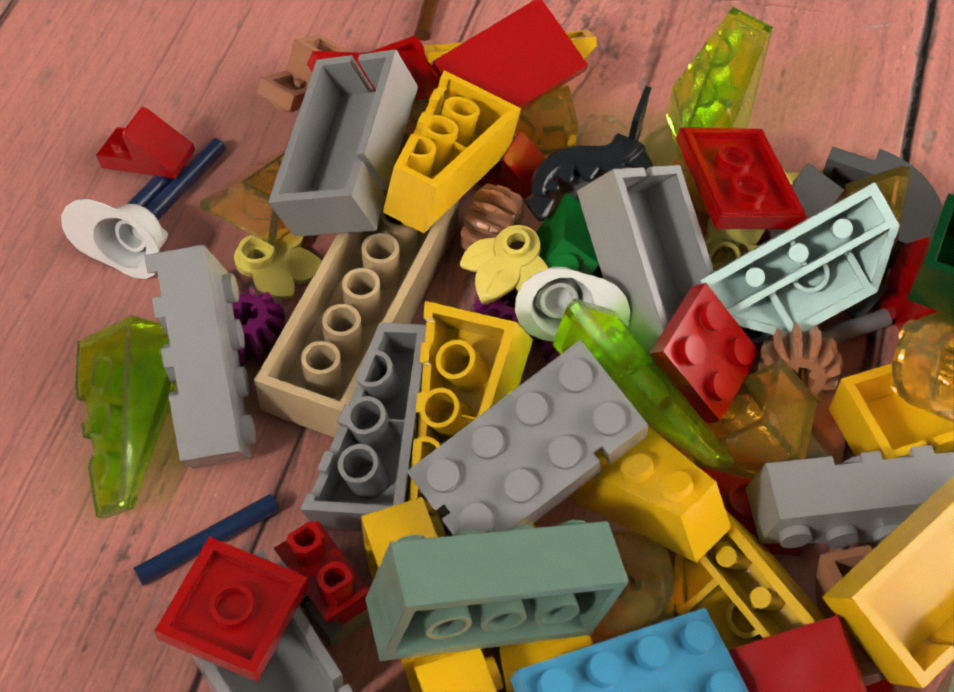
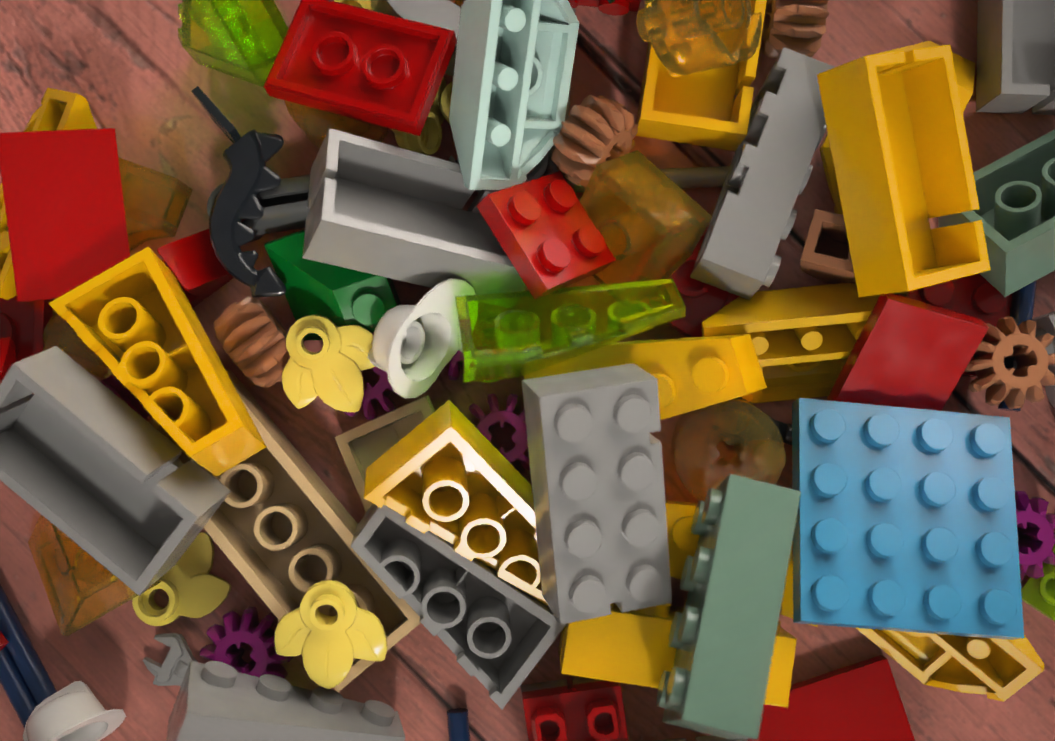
camera: 60 degrees left, 30 degrees up
(296, 350) = (330, 641): none -> light yellow plate

